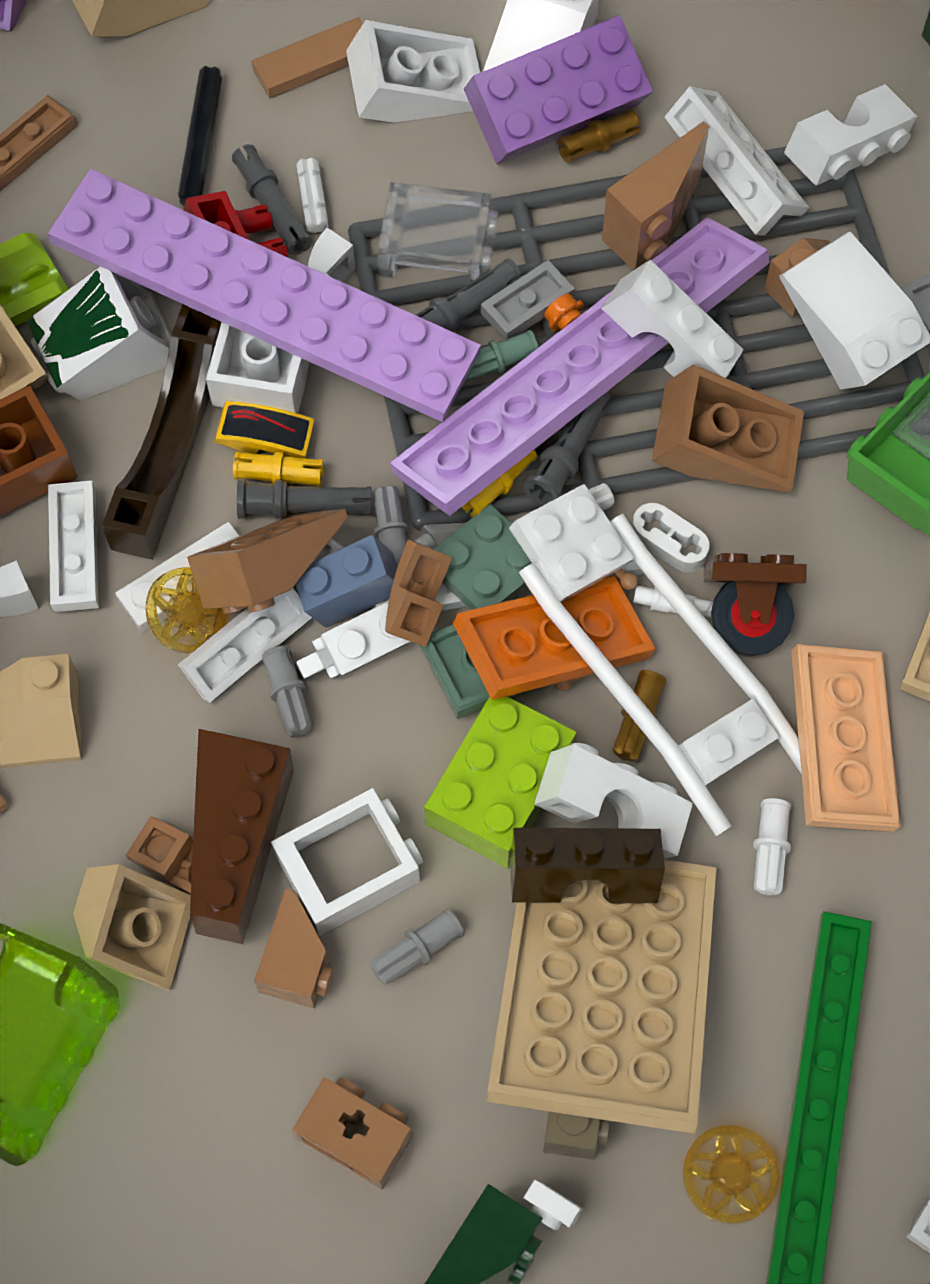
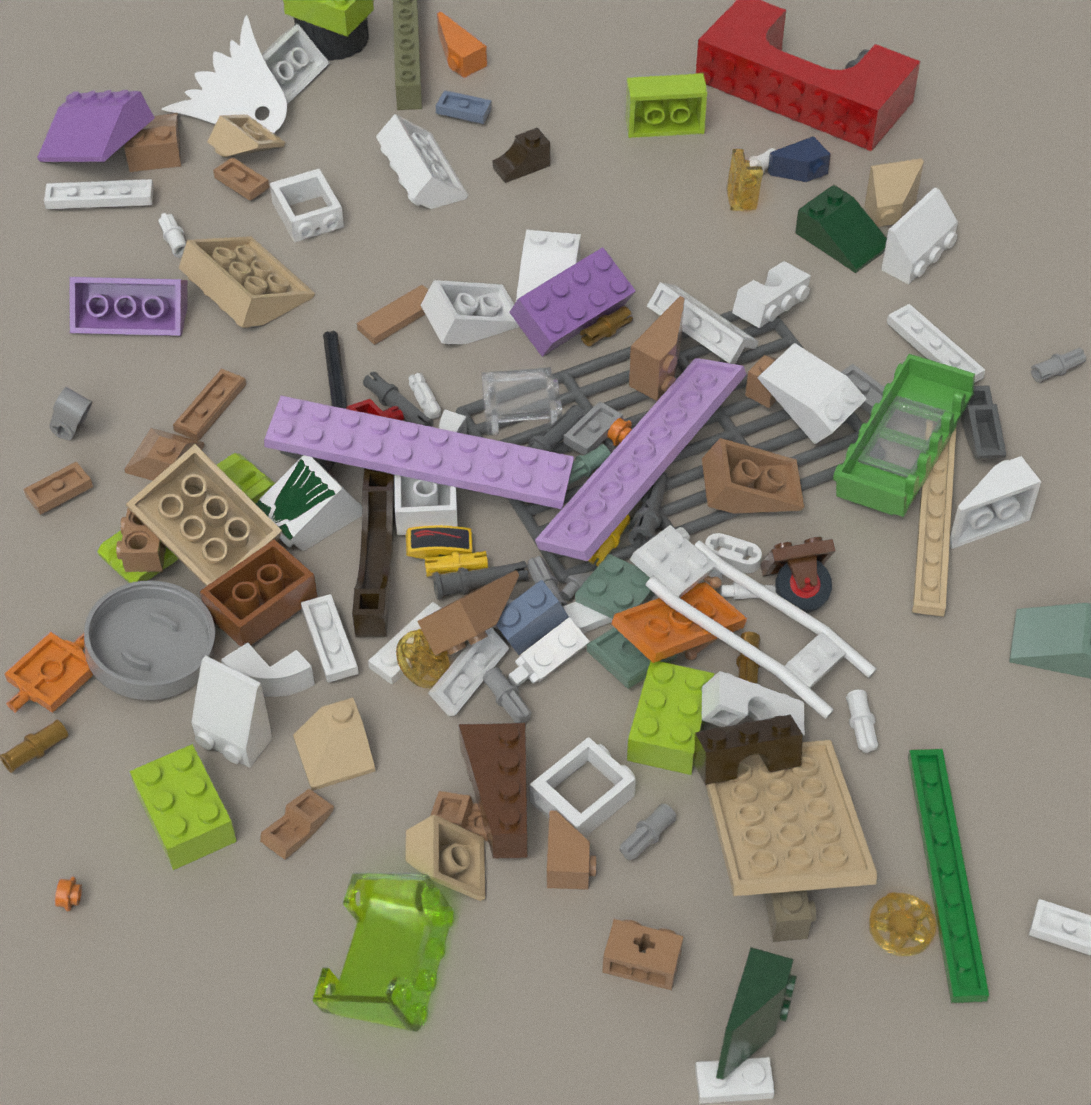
camera: 15 degrees left, 15 degrees down
(412, 600) = (578, 605): medium nougat slope -> none
(552, 1206) = (801, 953): white plate -> none
(654, 303) = (683, 406): white arch -> none
(845, 738) = (888, 647): light nougat tile -> none

